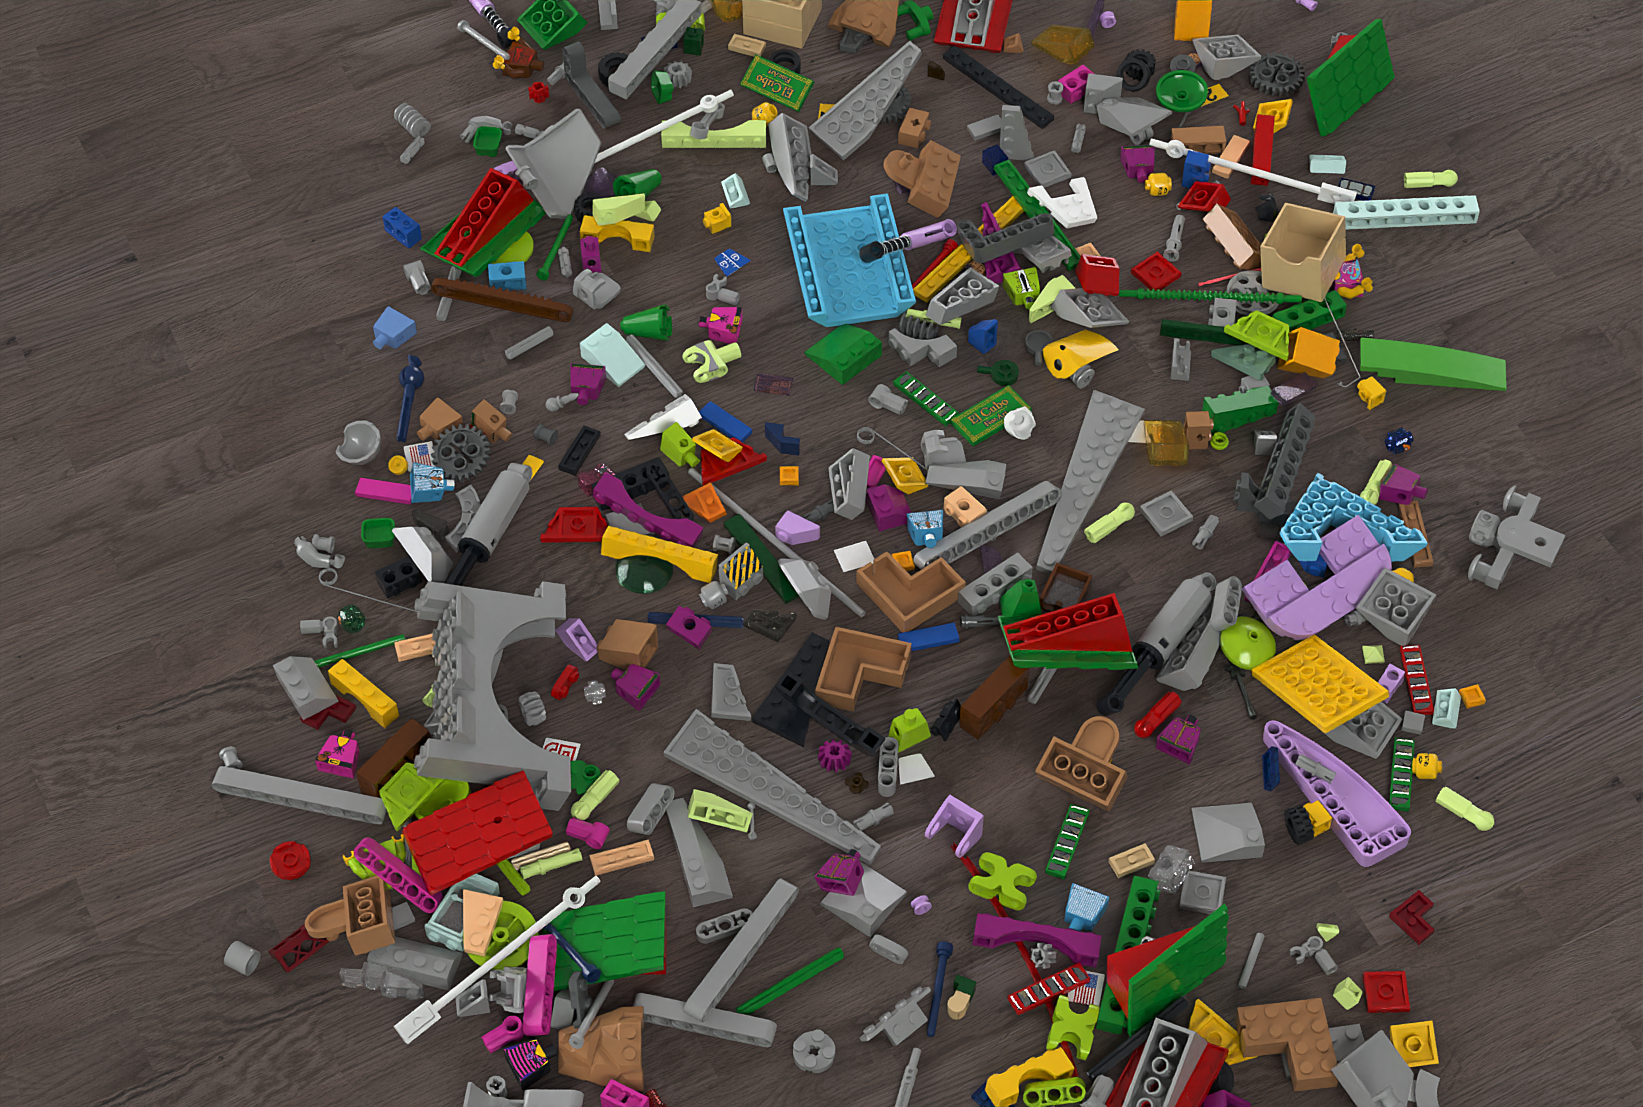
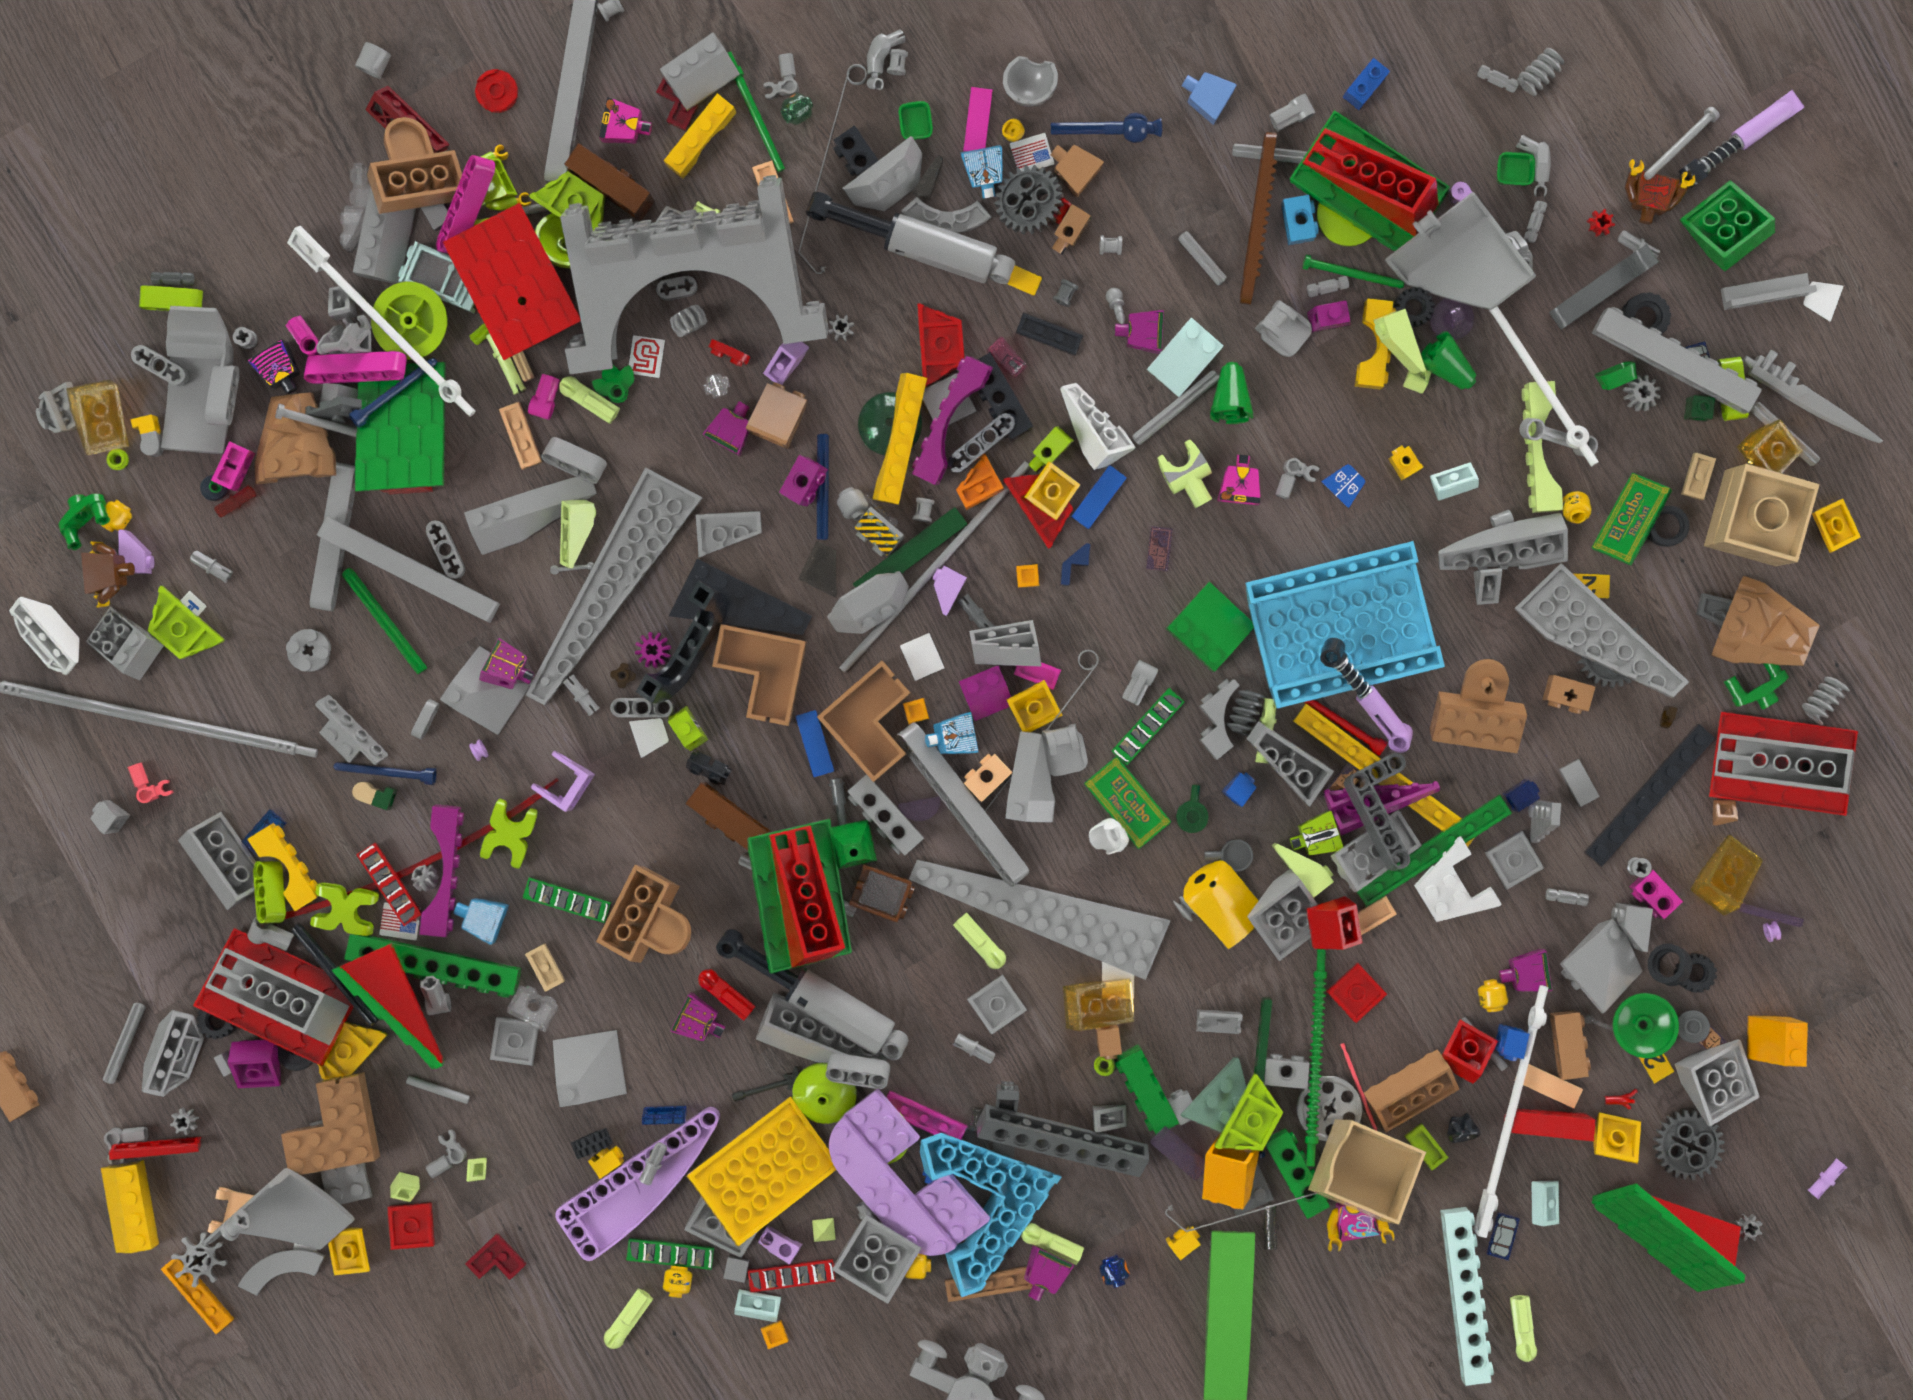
camera: 80 degrees right, 35 degrees up
(479, 920) = (419, 297): light nougat wing -> none
(1173, 243) = (1399, 1015): light grey pin -> none

